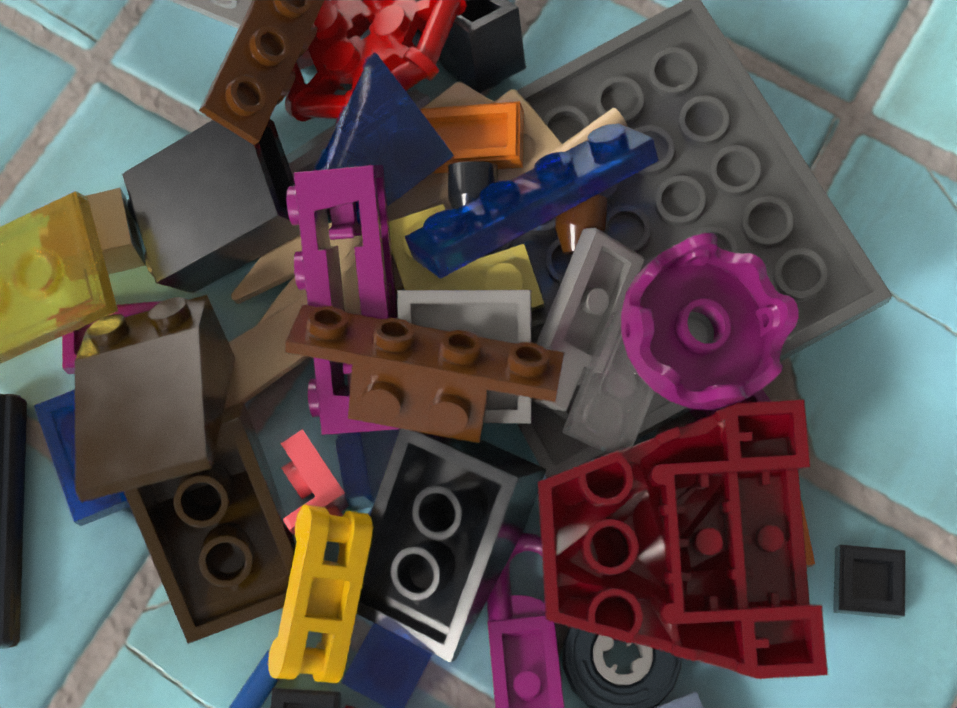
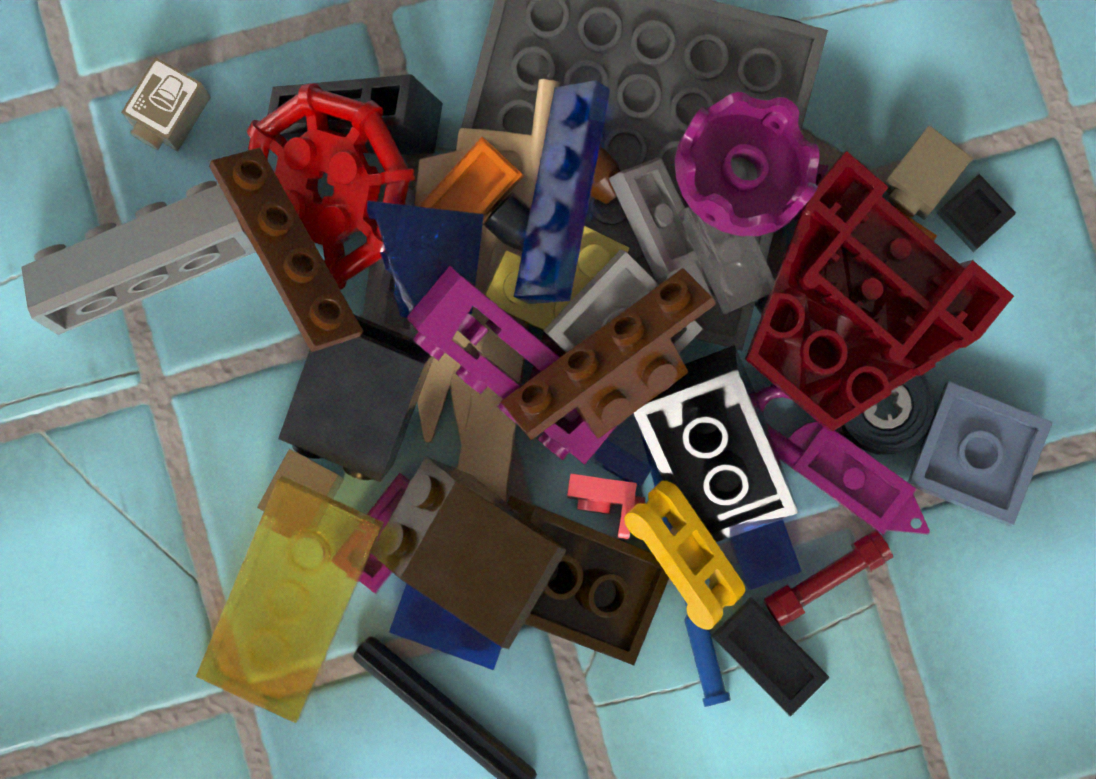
camera: 45 degrees left, 10 degrees up
(857, 502) = (925, 174): none -> dark tan brick

